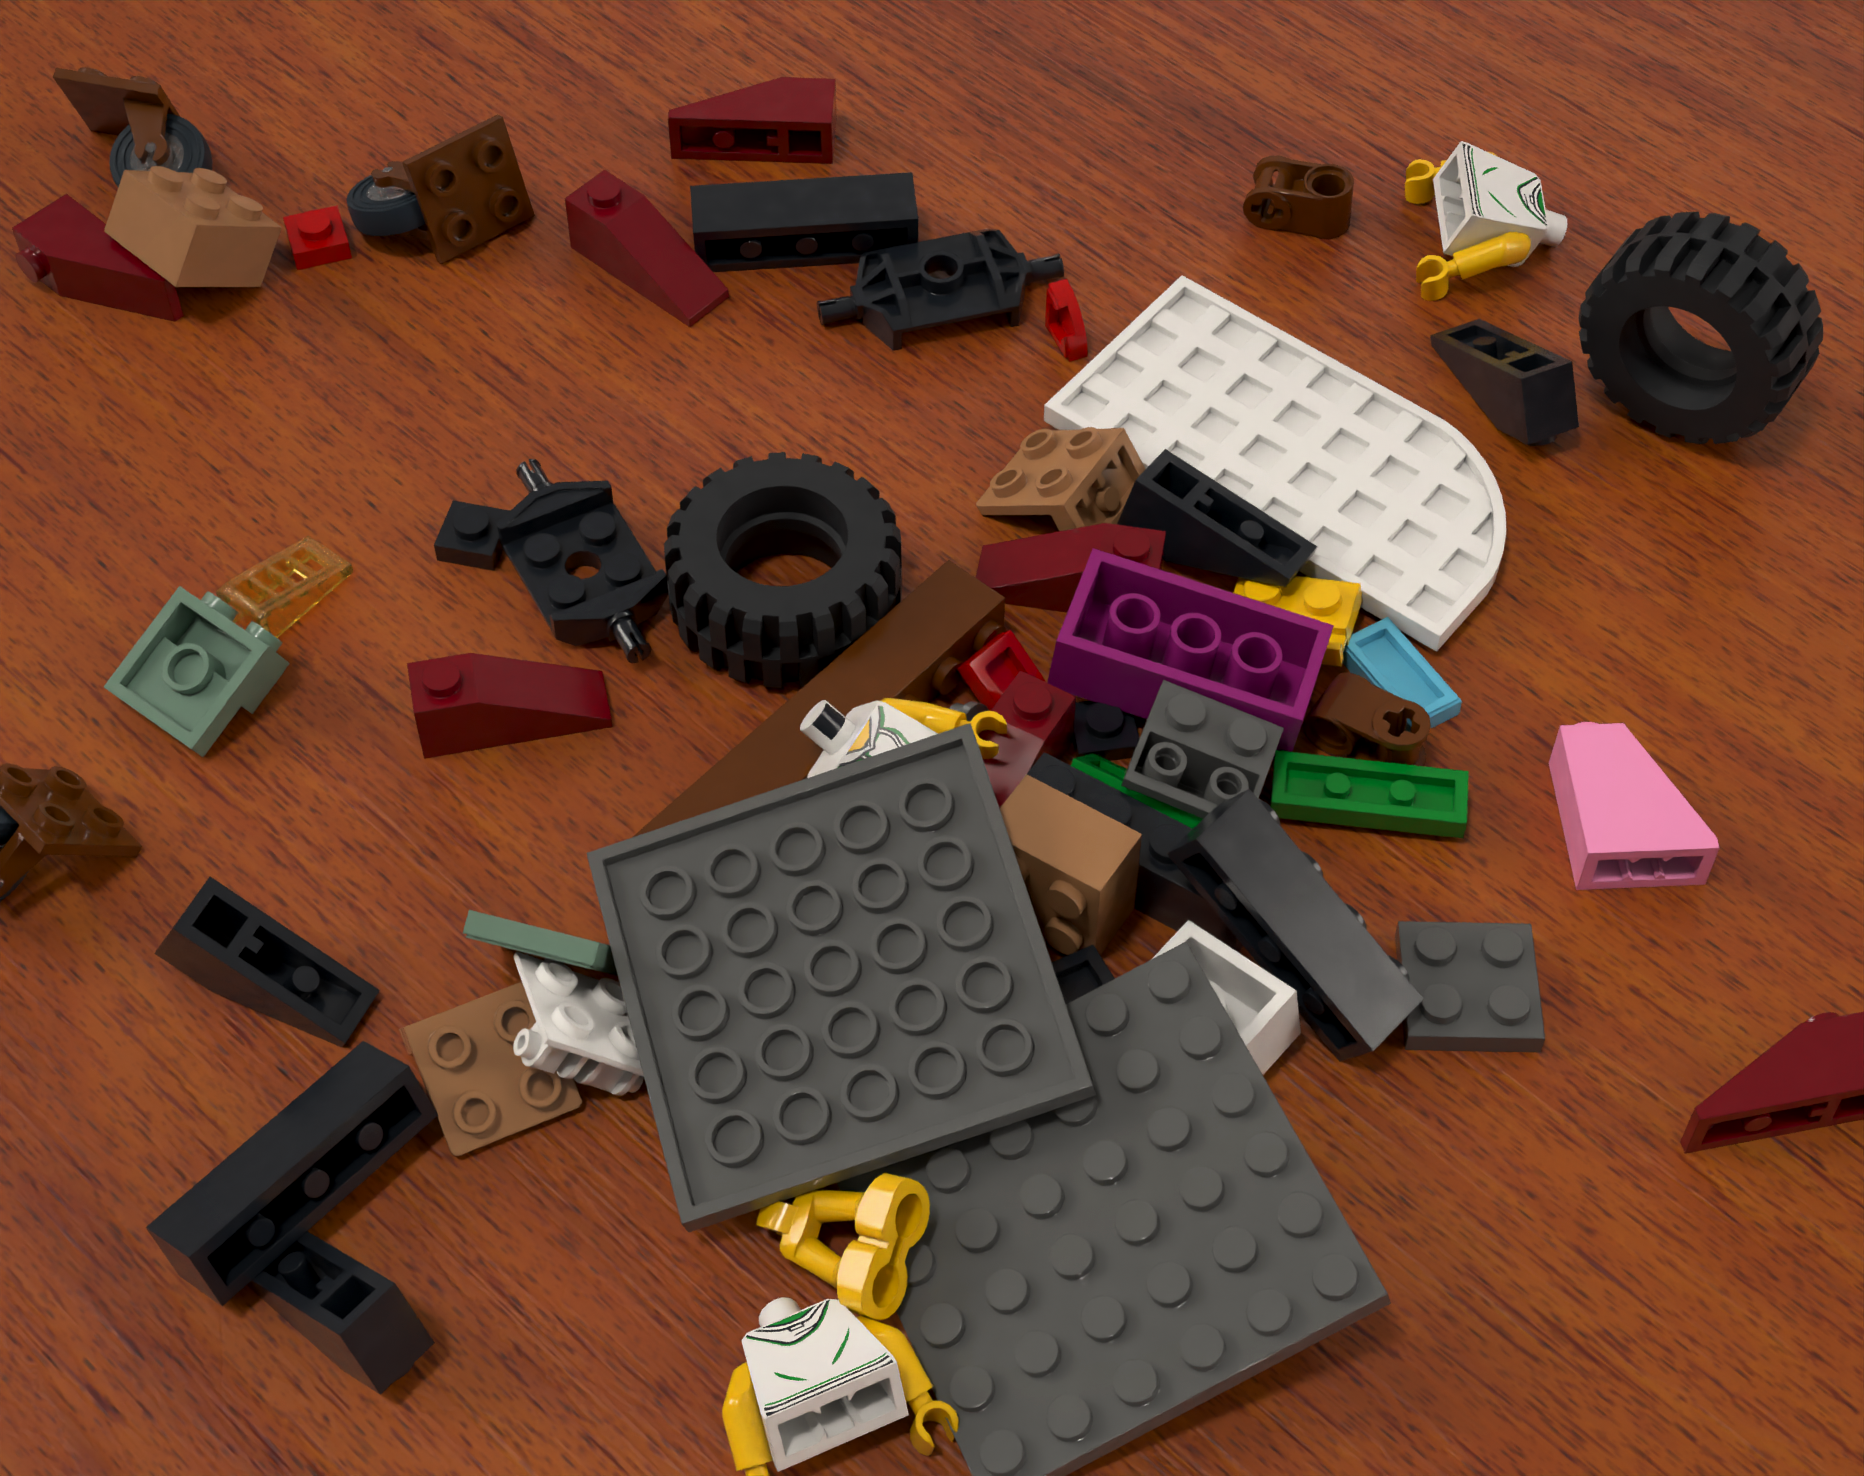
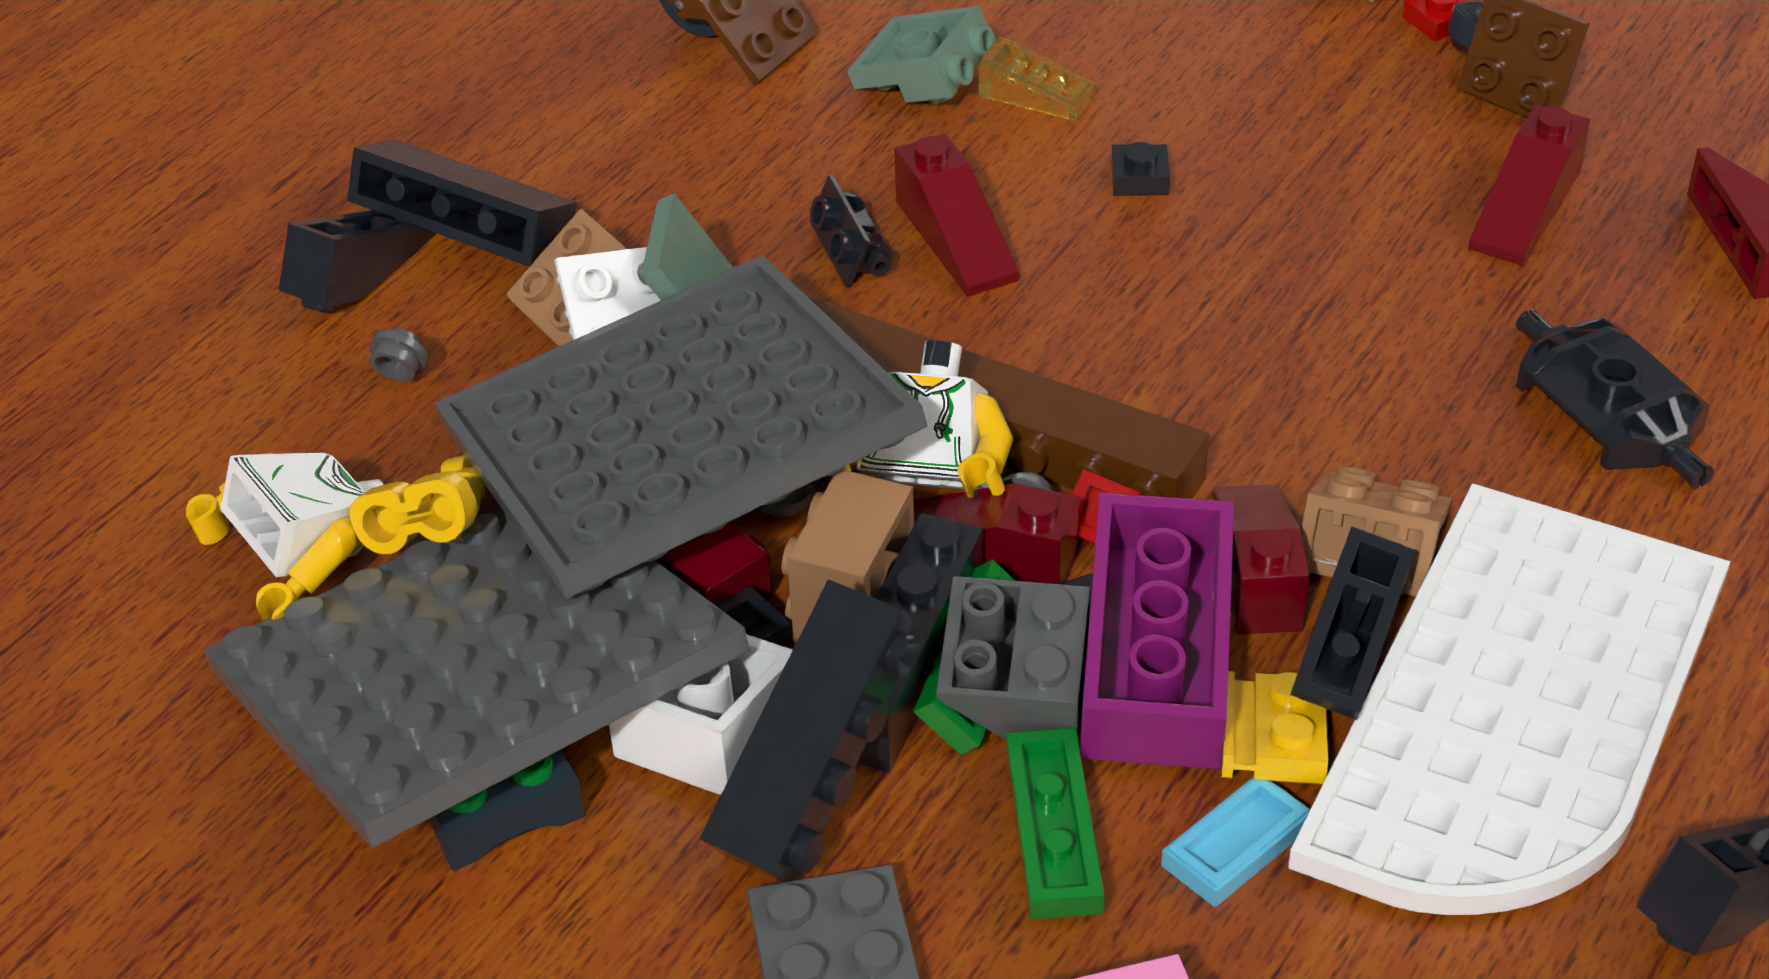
camera: 80 degrees right, 10 degrees down
(265, 965) = (649, 145): black slope -> none
(488, 806) = (848, 233): none -> black hinge
(544, 1271) = (398, 354): none -> dark grey plate
(577, 527) = (1128, 228): black plate -> none
(769, 511) = (1165, 284): black tyre -> none
(802, 220) = (1636, 277): black brick -> none
(1065, 320) = (1617, 489): red tile -> none
(1366, 722) = (1141, 810): reddish brown piece -> none

